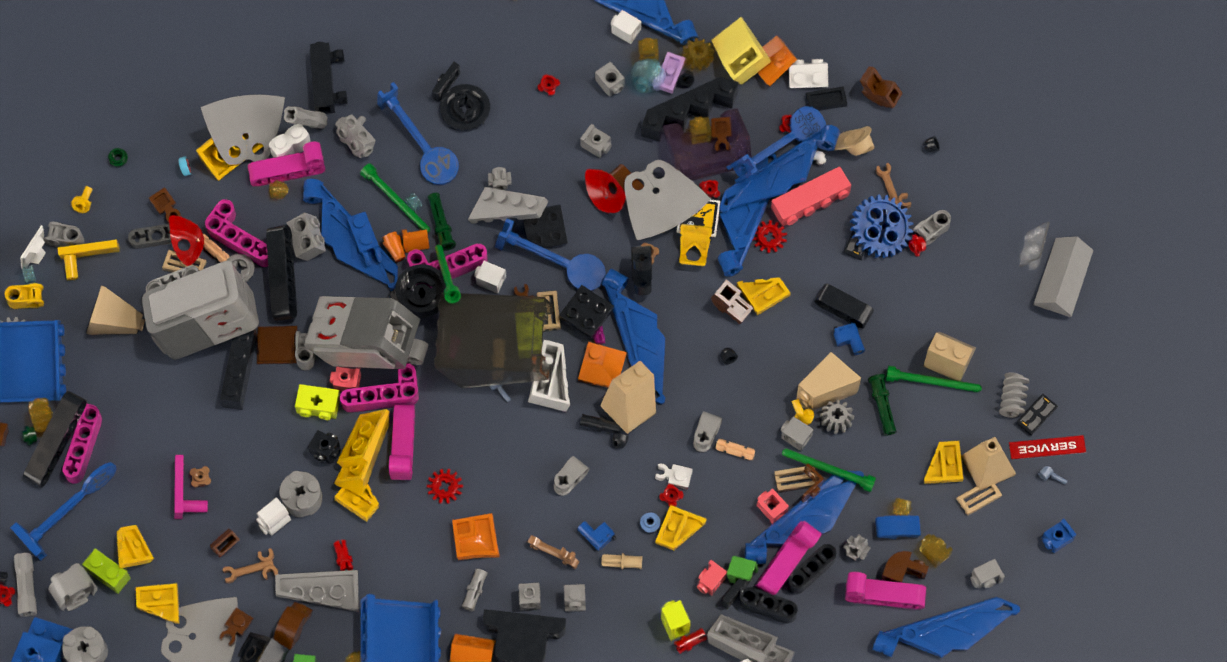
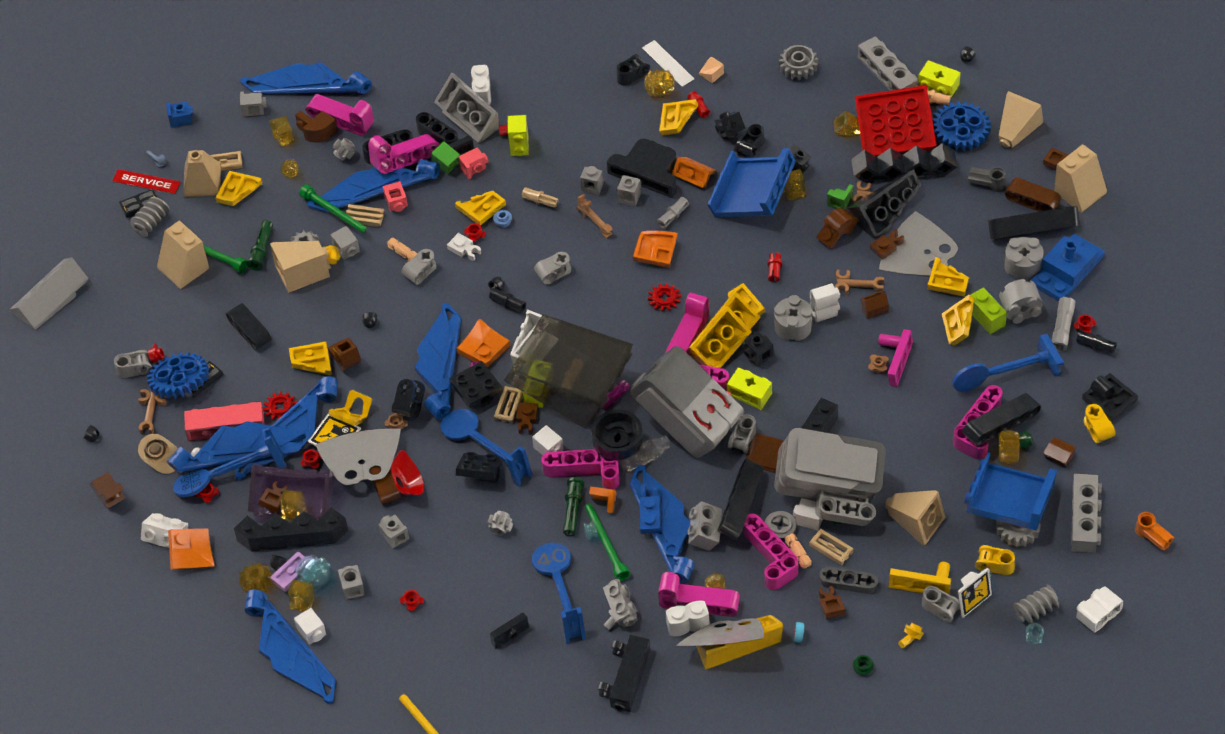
camera: 155 degrees left, 15 degrees down
(186, 229) = (820, 544): red piece -> none
(305, 117) = (660, 623): light grey axle -> none
(323, 588) = (803, 249): light grey wing -> none
(394, 246) = (625, 499): orange cone -> none
(451, 292) = (591, 394): green piece -> none
(456, 98) = (498, 593): black gear -> none
(506, 204) = (505, 488): light grey wing -> none
(598, 538) = (551, 220): blue piece -> none
(631, 397) = (473, 300): tan slope -> none
(740, 51) = (216, 560): light yellow slope -> none
(818, 479) = (355, 193): reddish brown bracket -> none
(827, 98) = (160, 504): black tile -> none
(849, 335) = (259, 305): blue piece -> none
(895, 526) = (305, 155): blue slope -> none
(1034, 246) = (57, 317): clear hinge -> none

